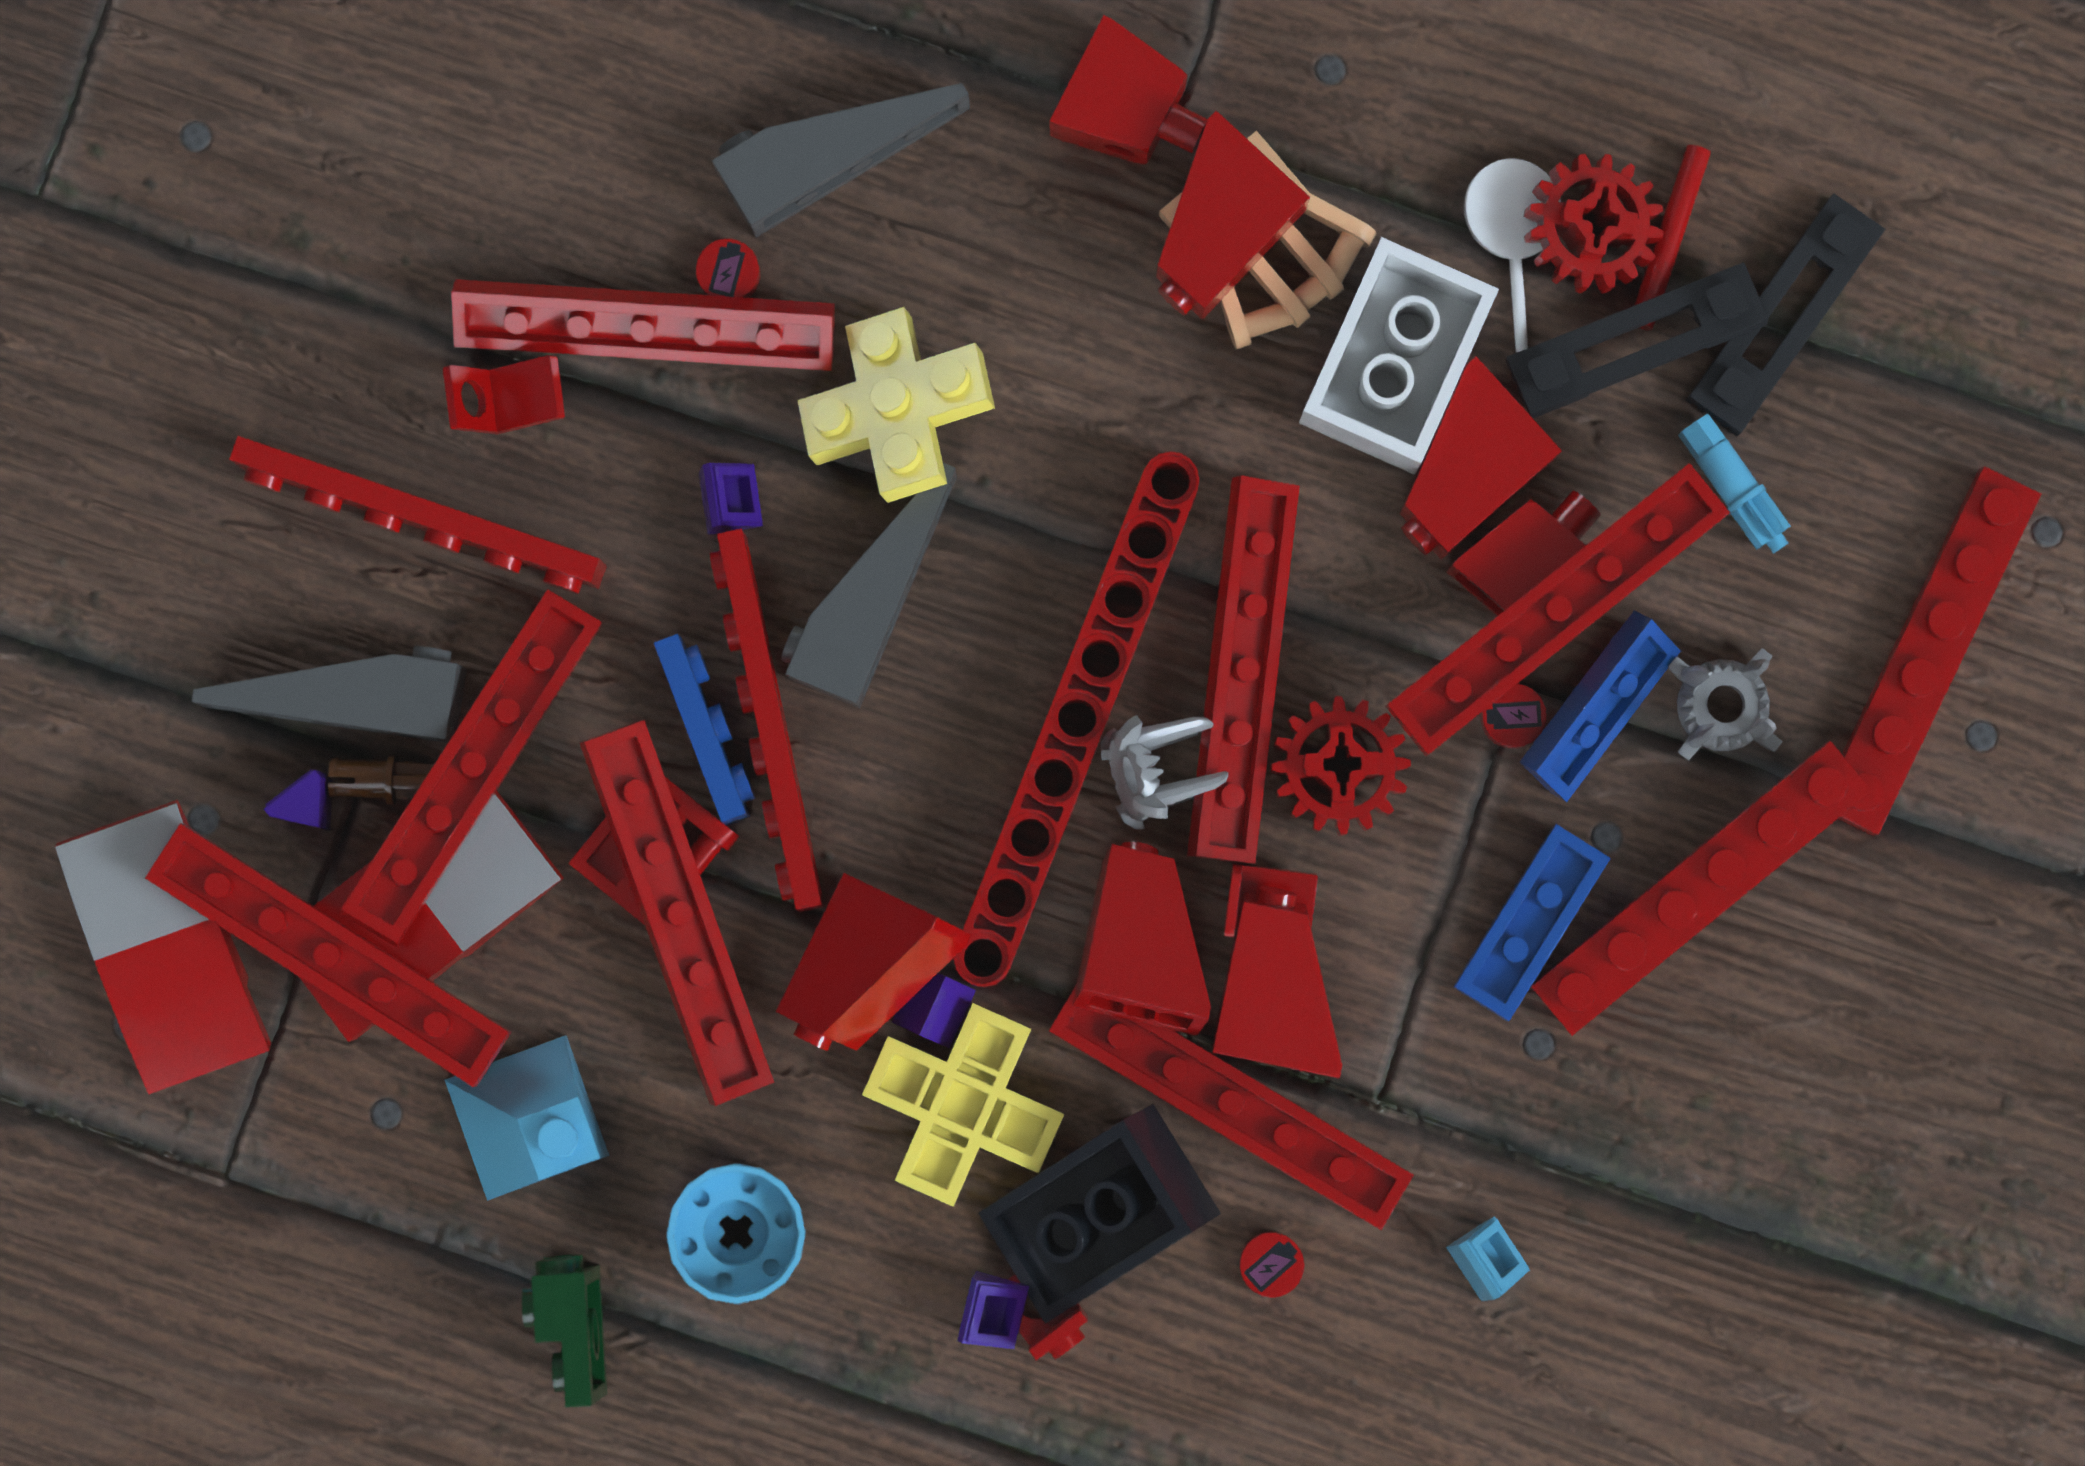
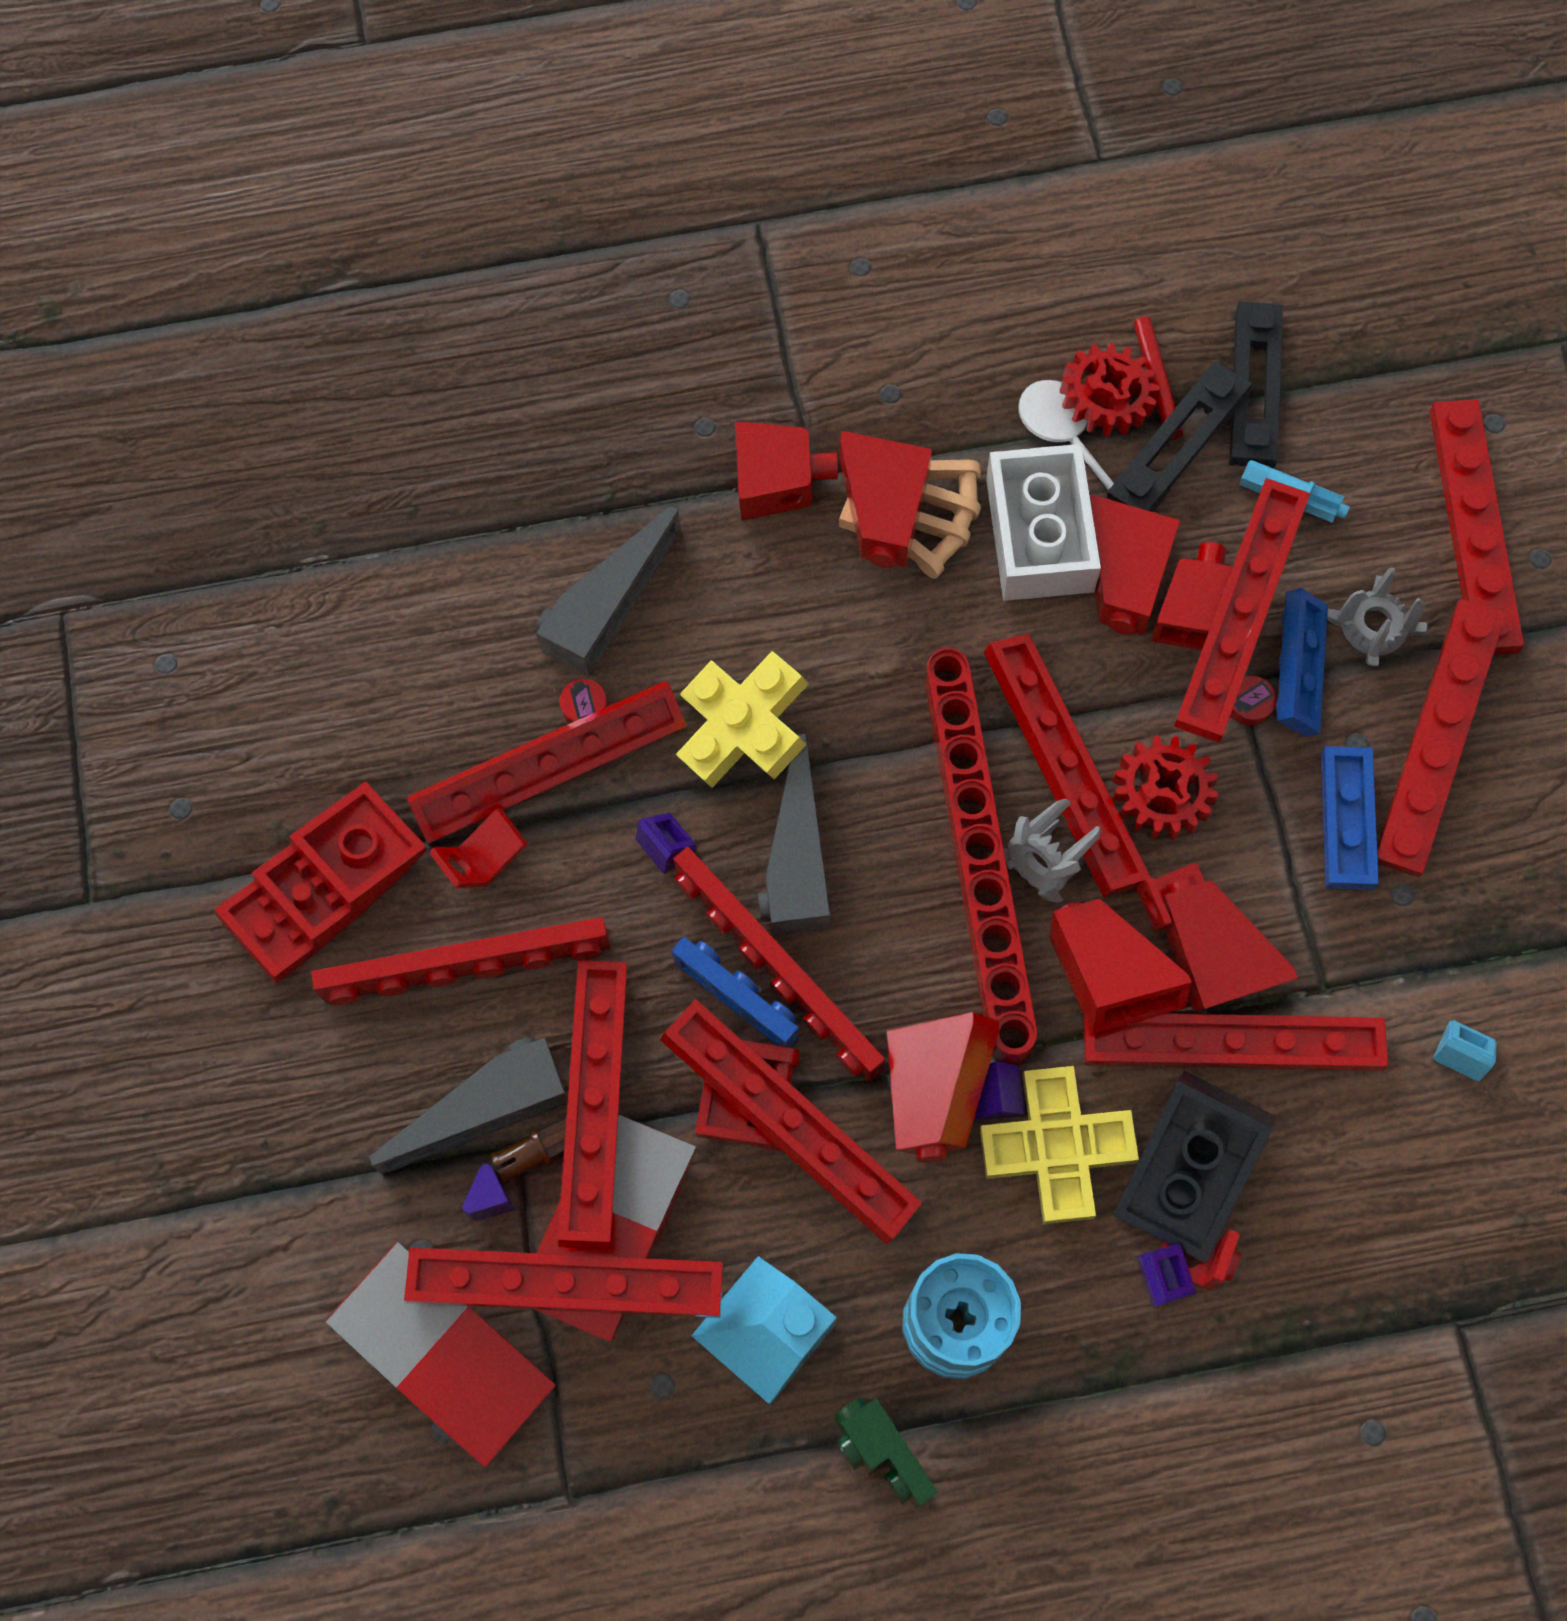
camera: 30 degrees left, 15 degrees down
(309, 323) = (320, 881): none -> red slope
(1271, 1264) = (1329, 1135): tile -> none

